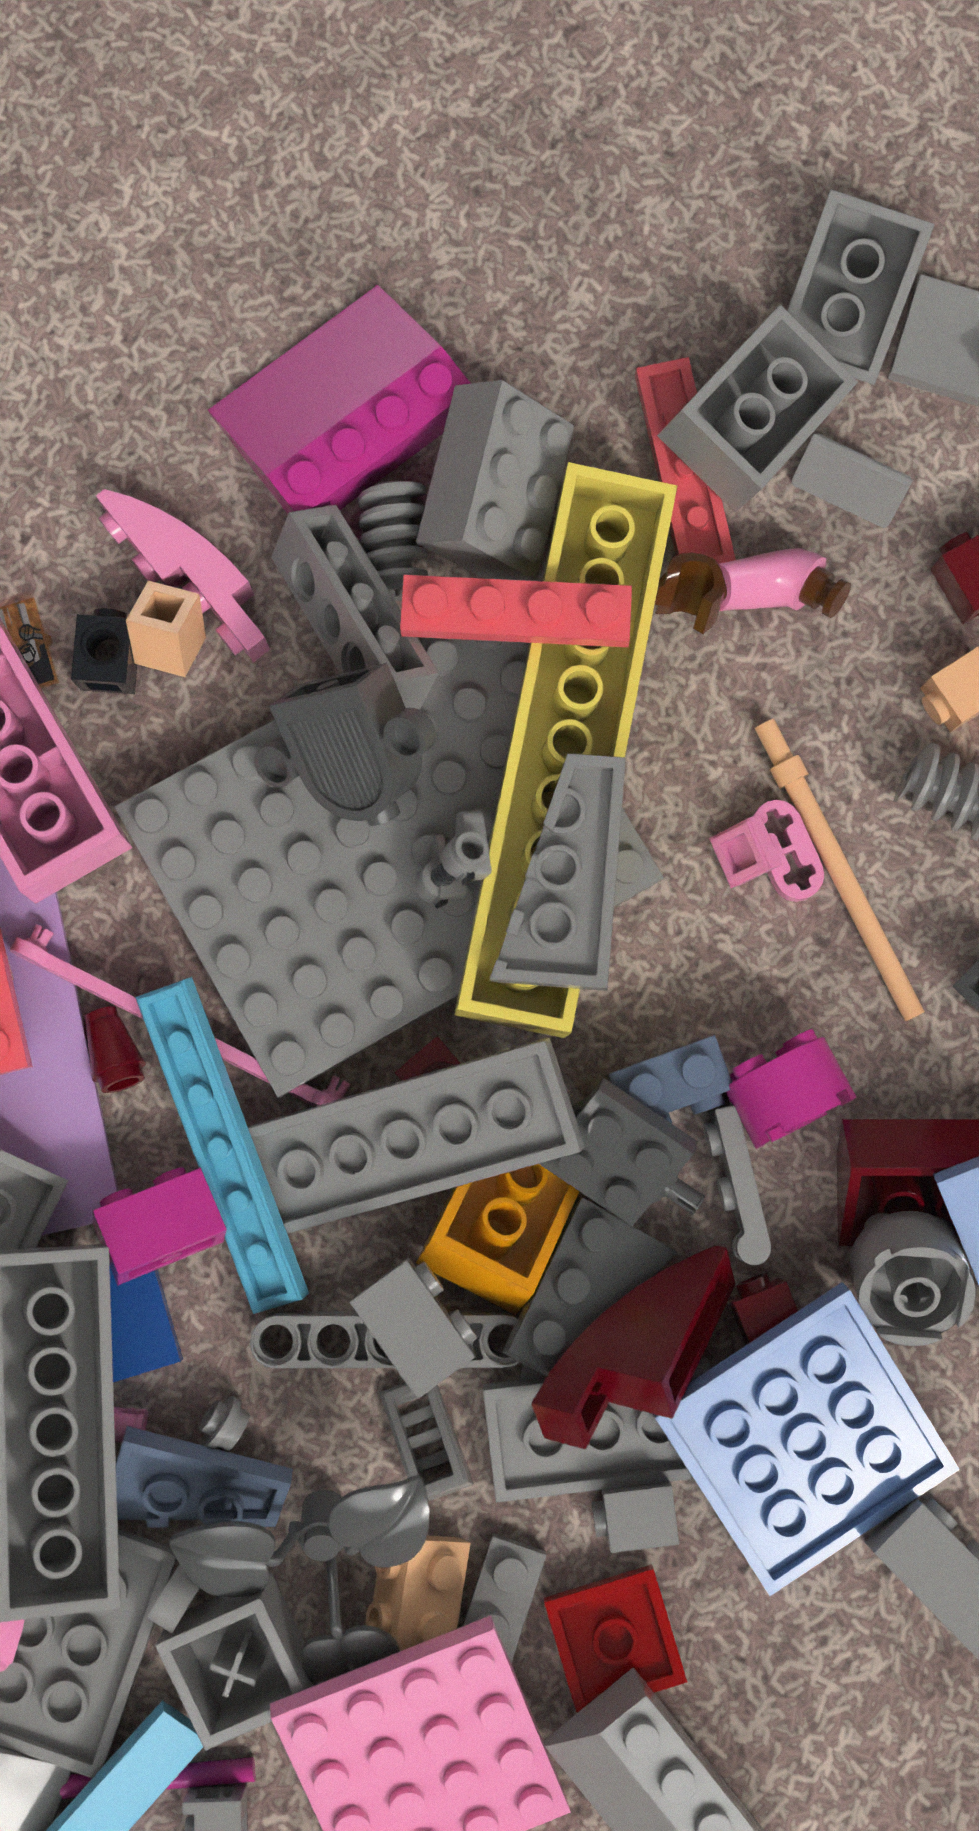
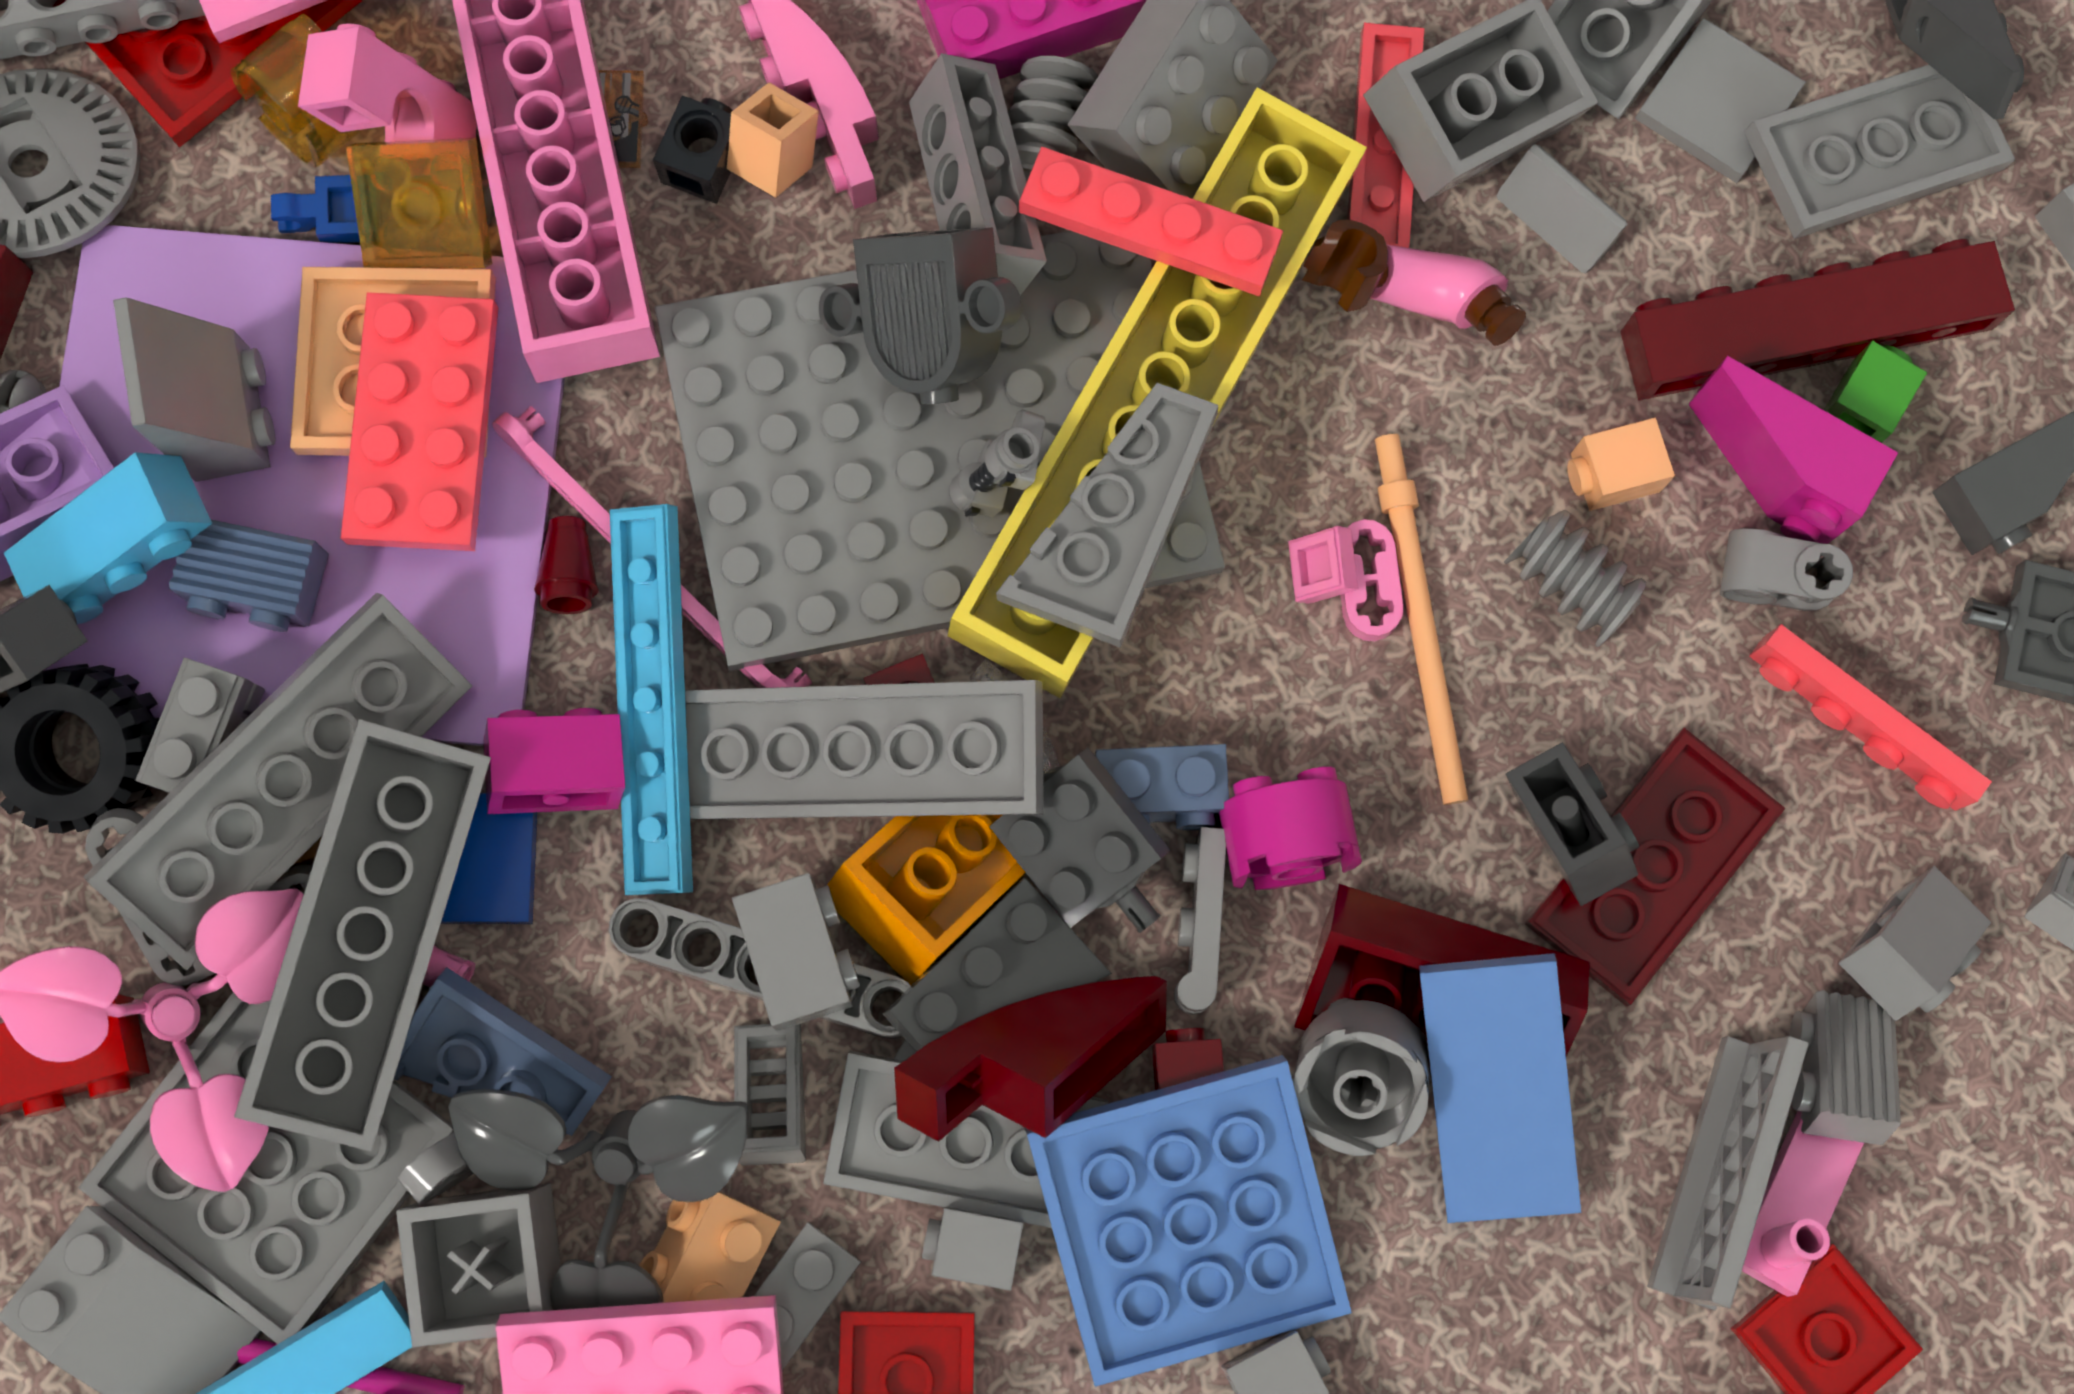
camera: 15 degrees right, 5 degrees down
(224, 1424) = (553, 1003): light grey plate -> none

